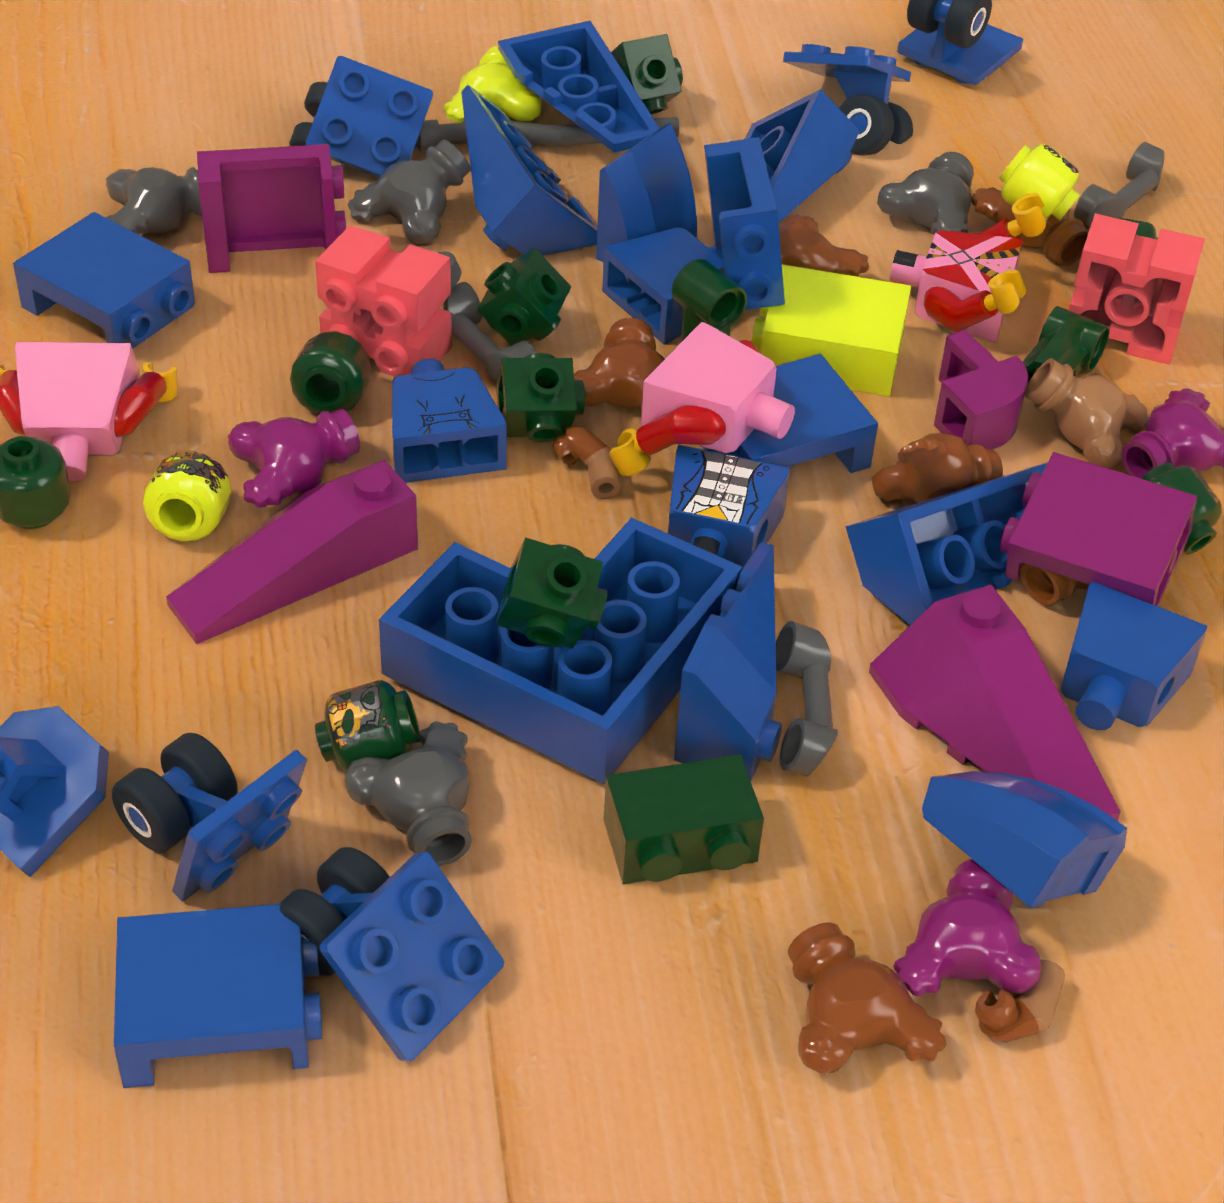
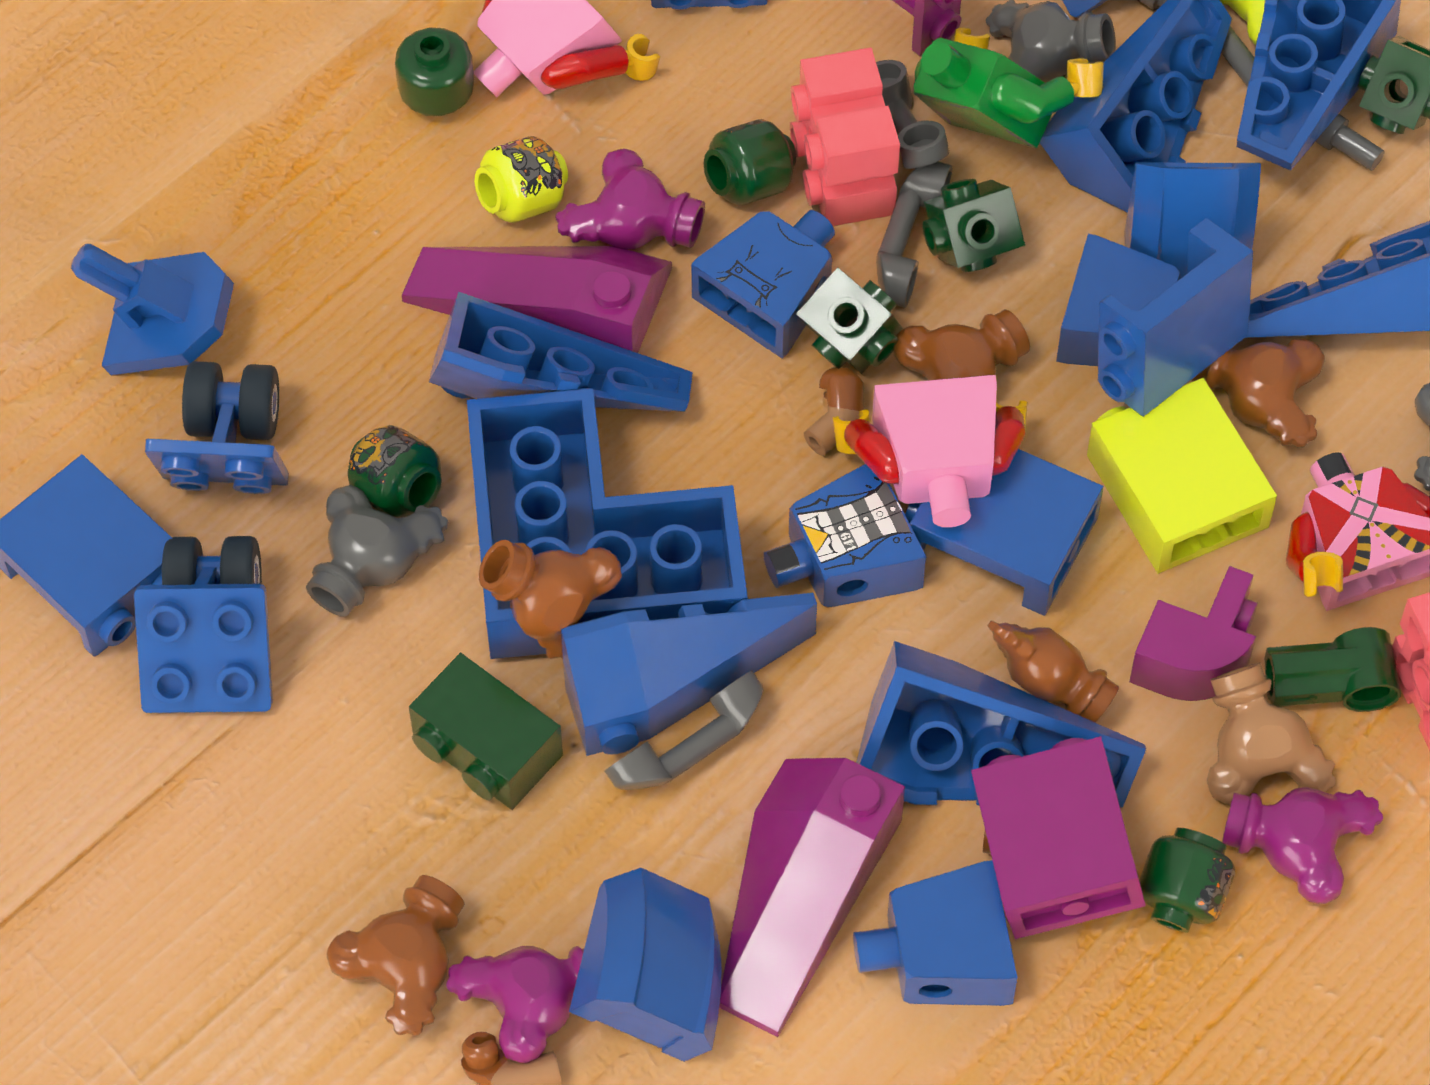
camera: 55 degrees right, 15 degrees up
(347, 591) = (508, 353): none -> blue wedge
(441, 209) = (993, 93): none -> green torso
(552, 594) = (543, 473): dark green brick -> none
(643, 651) = (547, 588): none -> dark orange animal
(707, 297) = (1067, 369): dark green piece -> none

